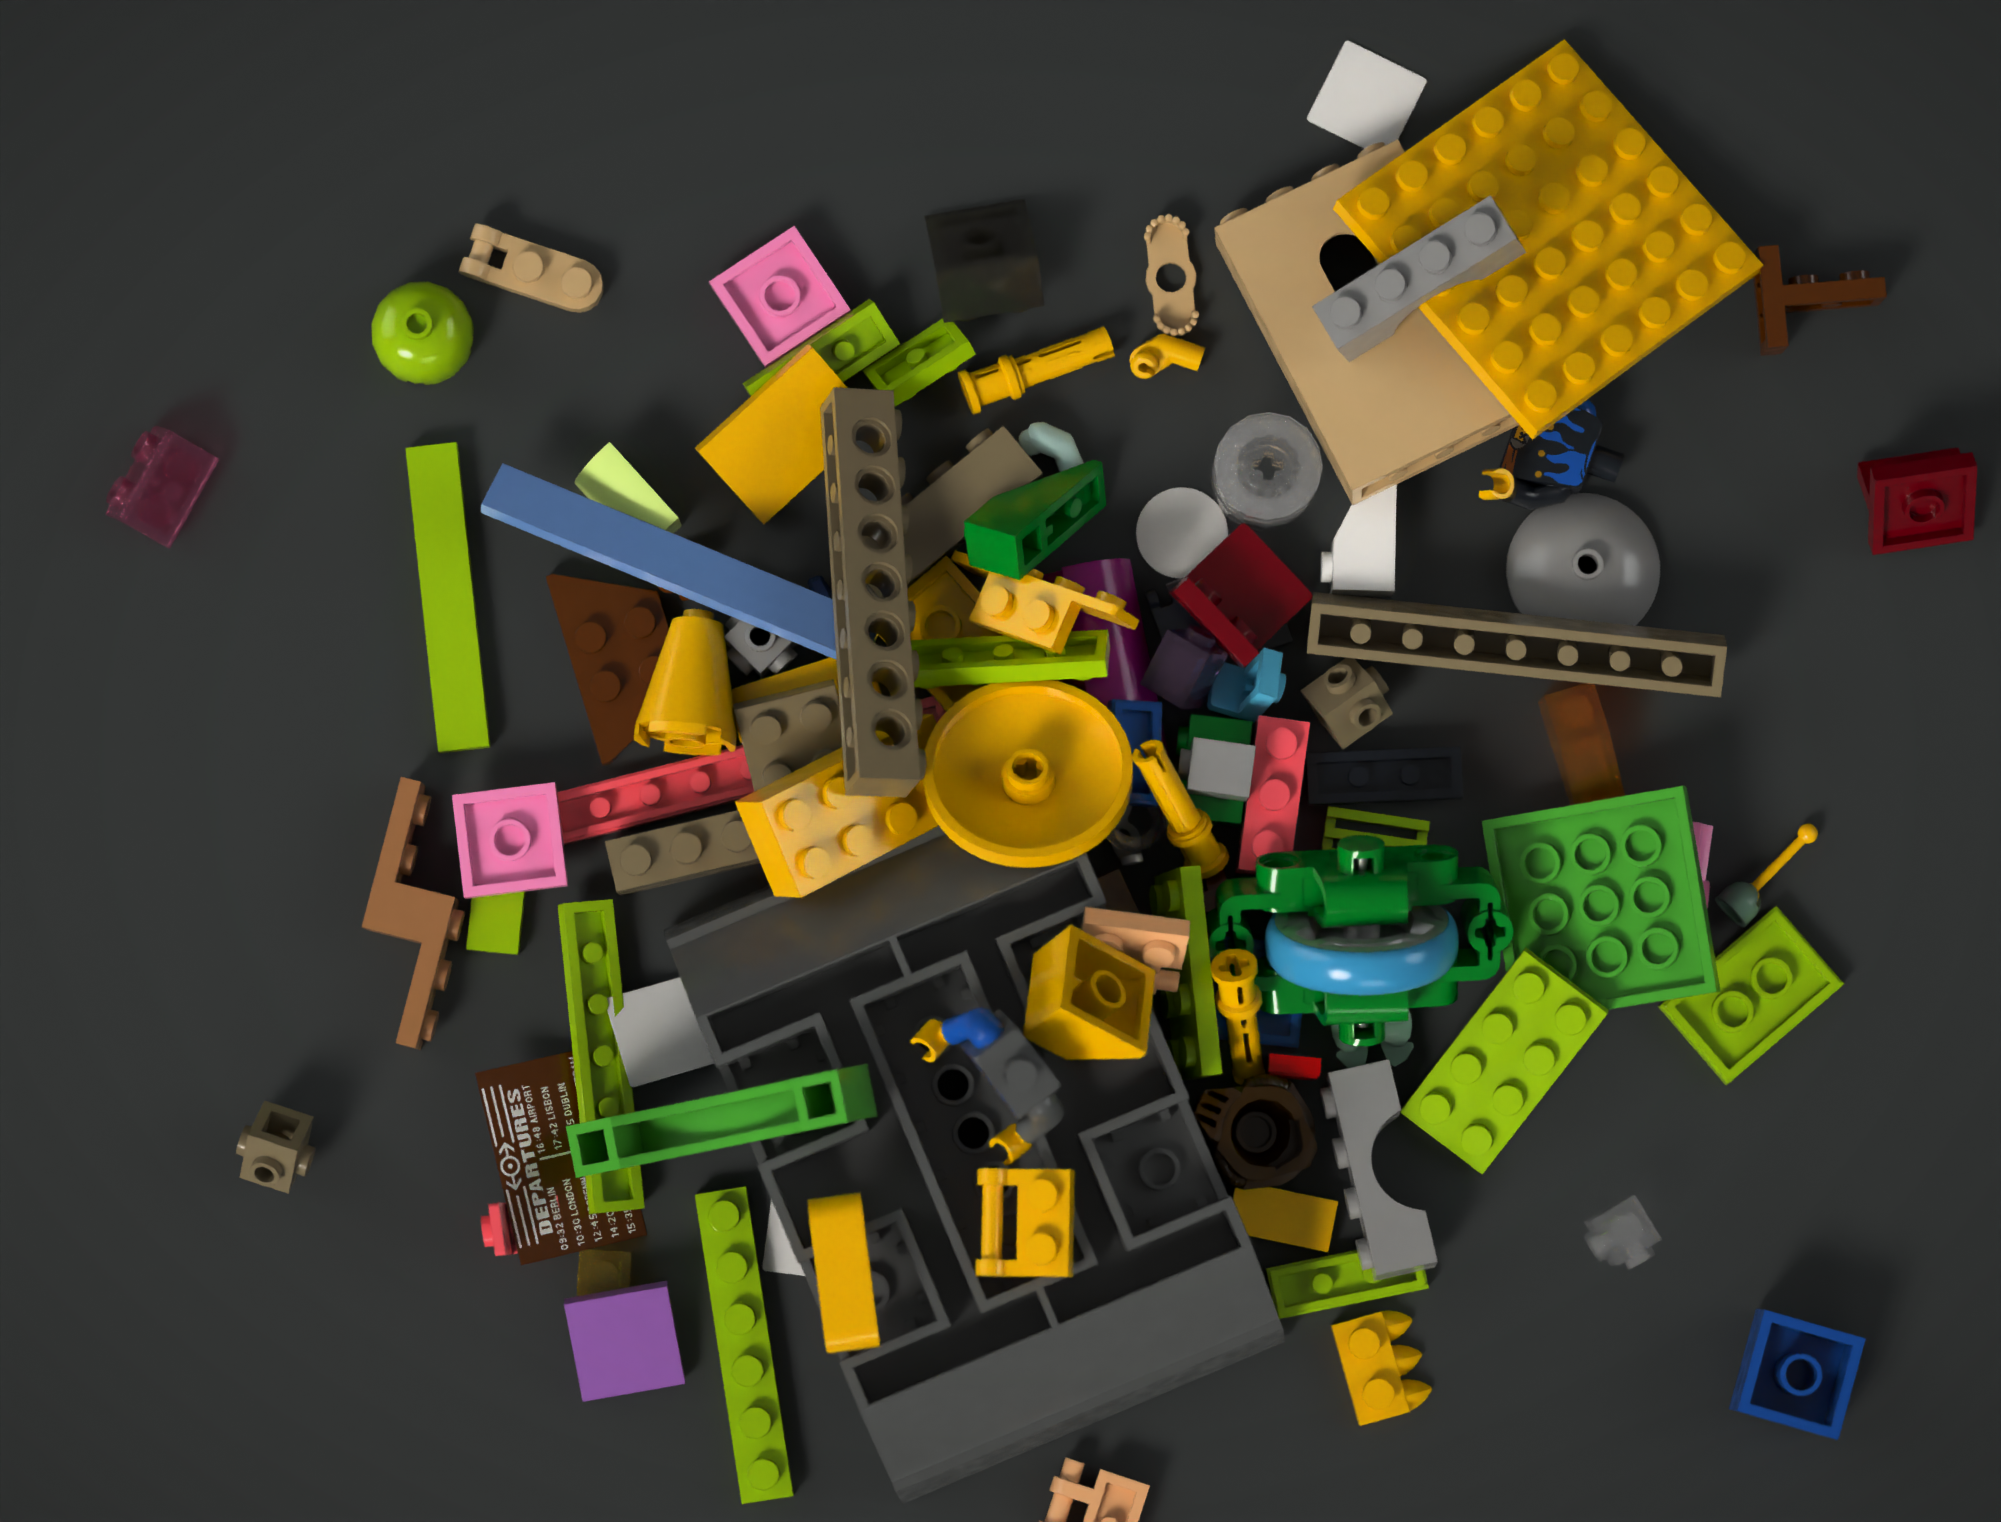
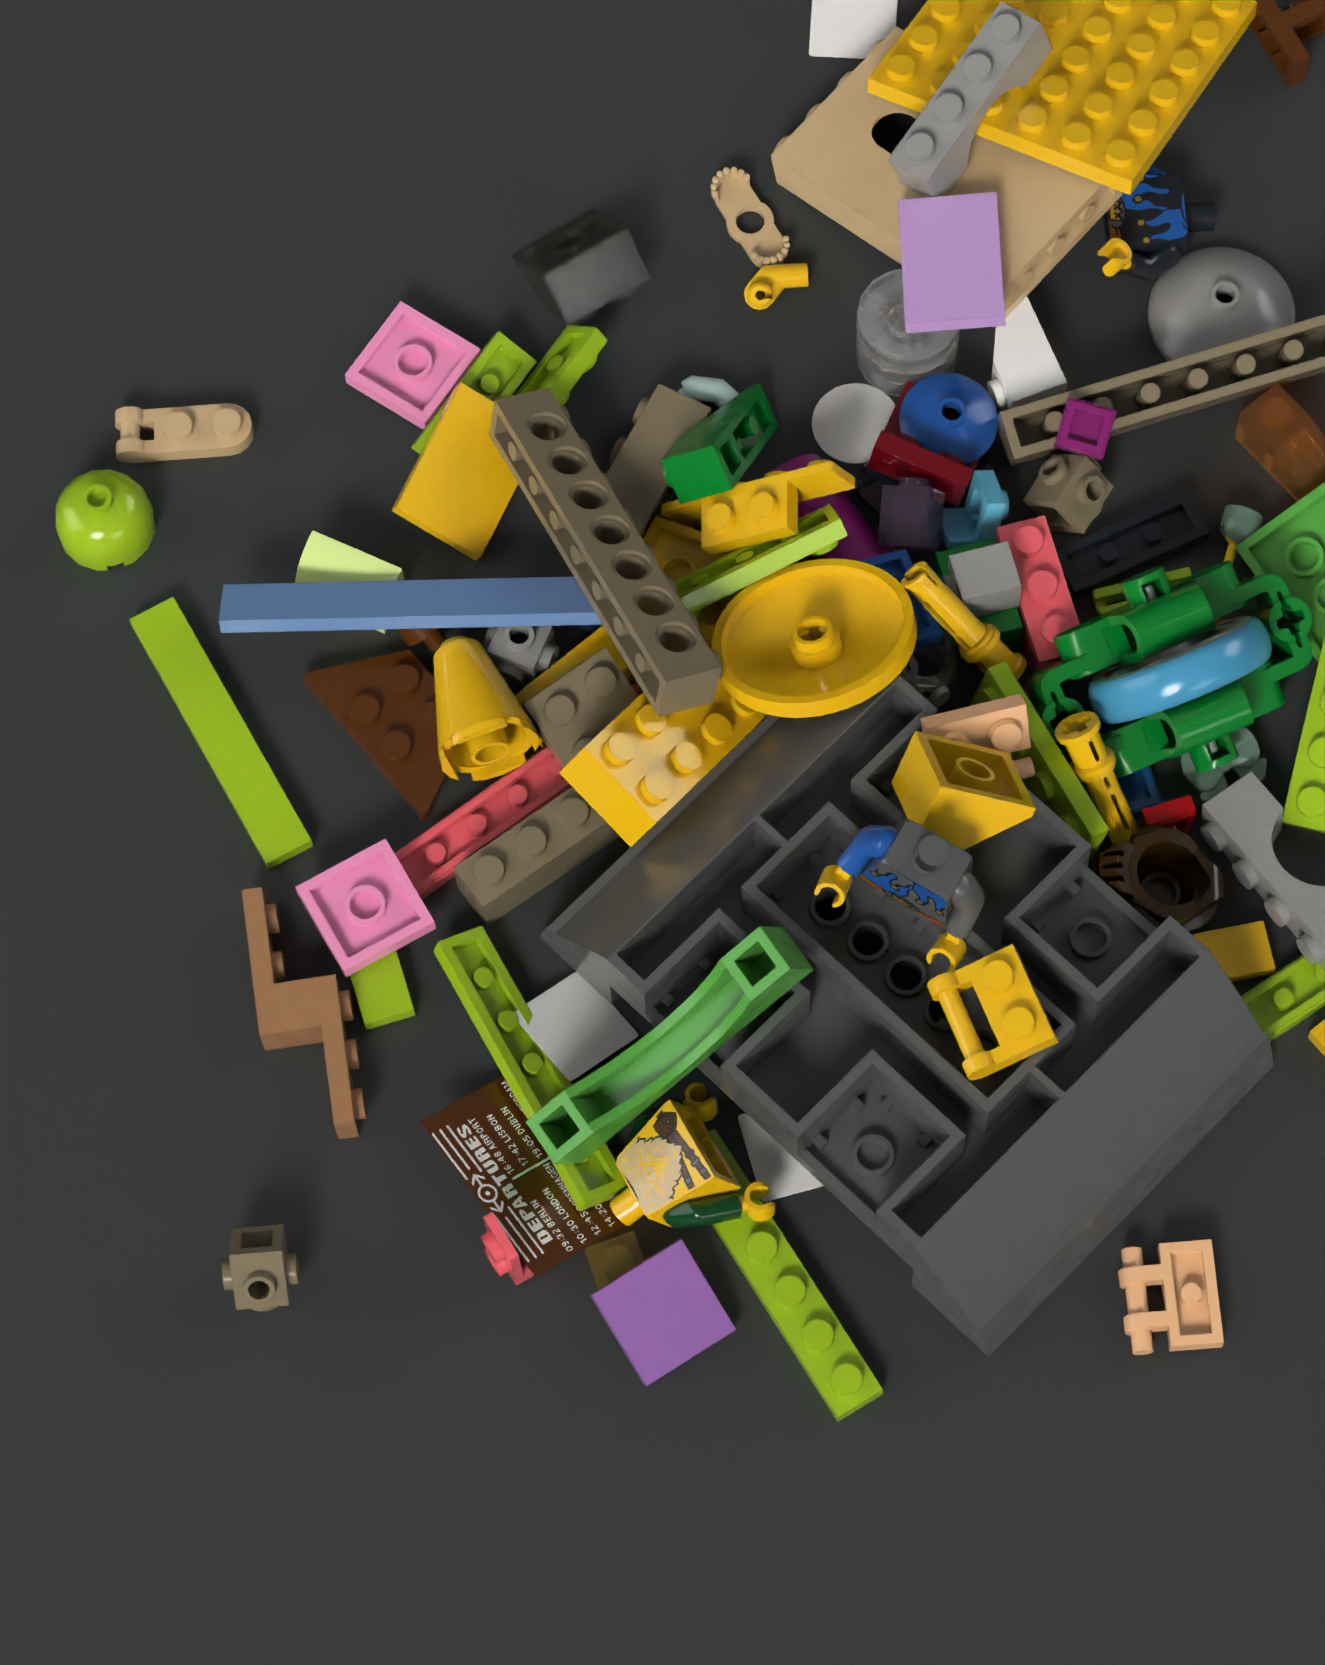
camera: 15 degrees left, 15 degrees down
(692, 1220) = (679, 1171): none -> torso
(843, 1273) = (845, 1121): yellow beam -> none
(1013, 376) = (648, 349): yellow pin -> none
(1238, 583) = (965, 437): none -> blue dish
(1329, 434) = (951, 262): none -> lavender tile
(1384, 655) = (1084, 428): none -> magenta tile
(1493, 802) = (1237, 525): none -> sand green hinge

